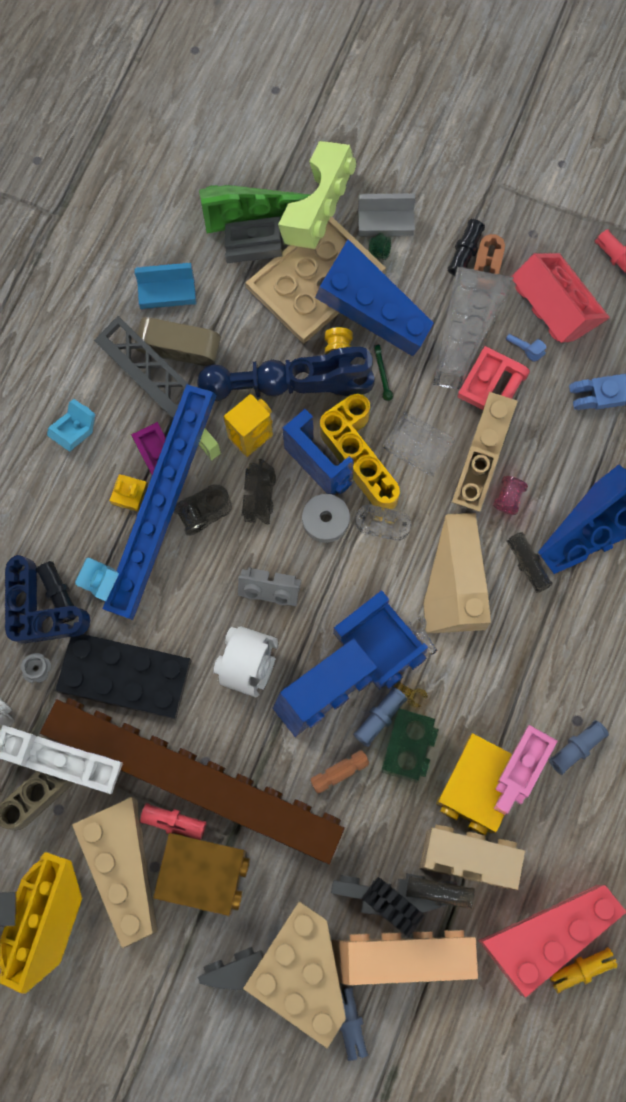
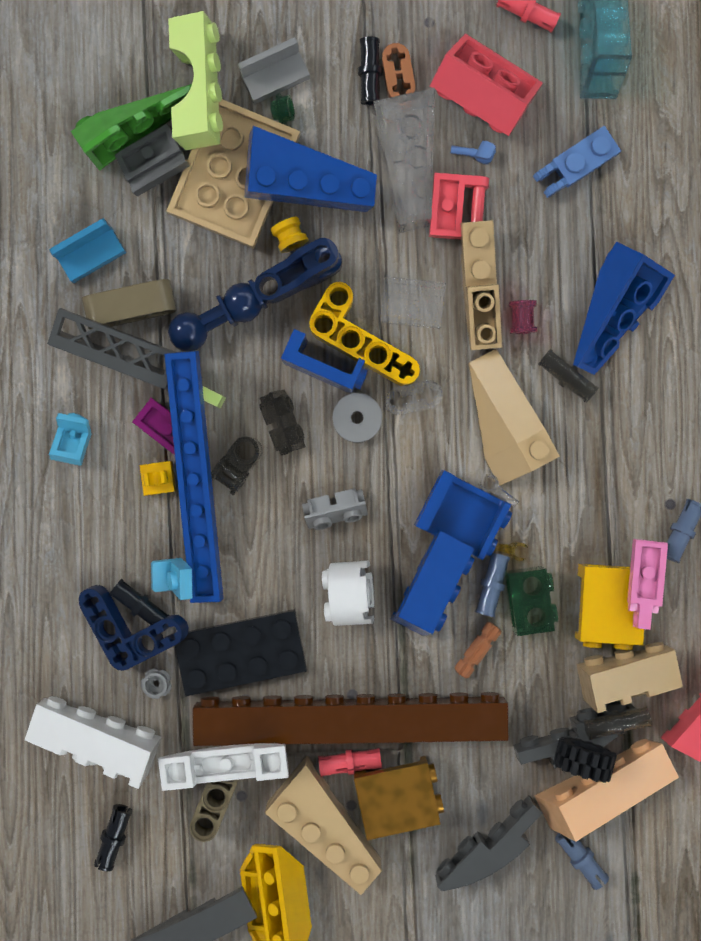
camera: 25 degrees left, 15 degrees up
(249, 424) = (243, 362): yellow brick -> none
(301, 977) = (526, 847): tan plate -> none
(387, 394) = (360, 265): dark green hinge -> none

